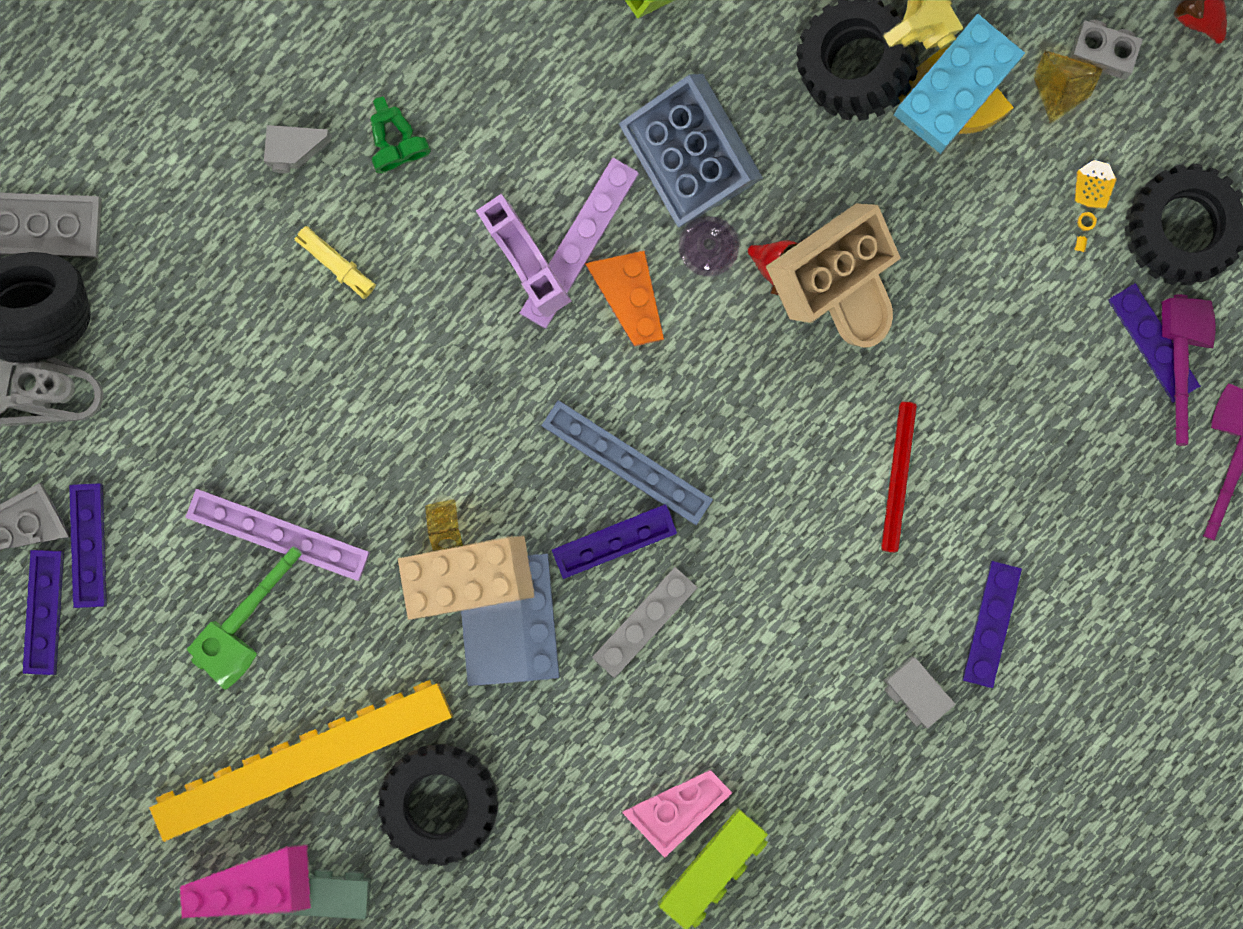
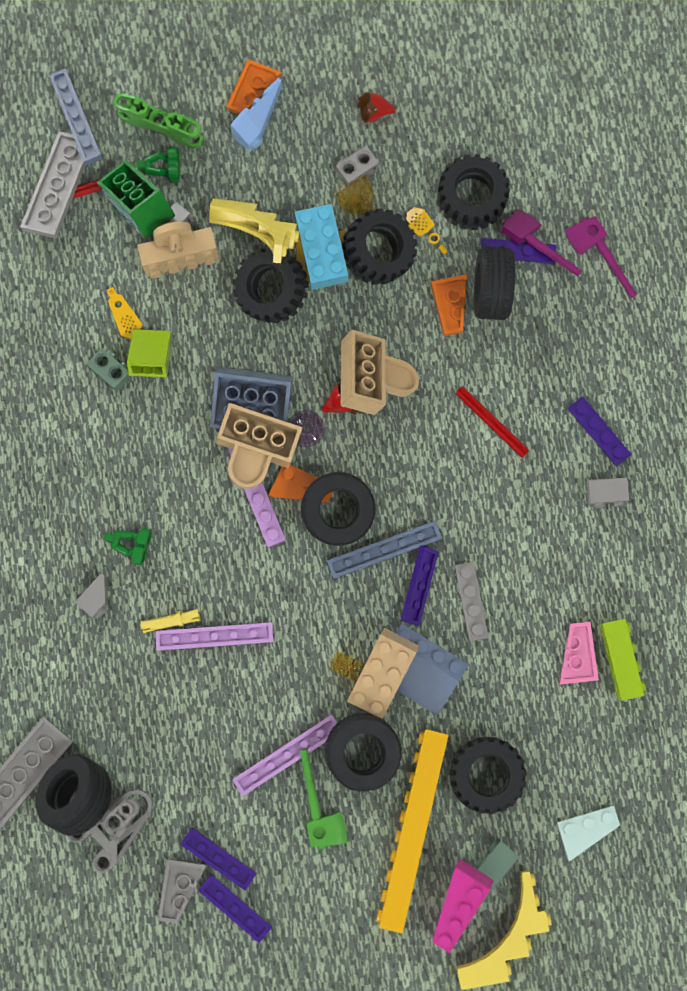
camera: 50 degrees left, 5 degrees down
(319, 655) = (382, 771): none -> black tyre
(356, 332) = (214, 636): none -> lavender plate
(524, 256) = (242, 522): lavender arch -> none
(591, 374) = (364, 508): none -> black tyre
(637, 196) = (255, 444): none -> tan brick
(1016, 305) = (450, 301): none -> orange wing
(1054, 166) = (395, 231): none -> black tyre
(1081, 342) = (494, 283): none -> black tyre

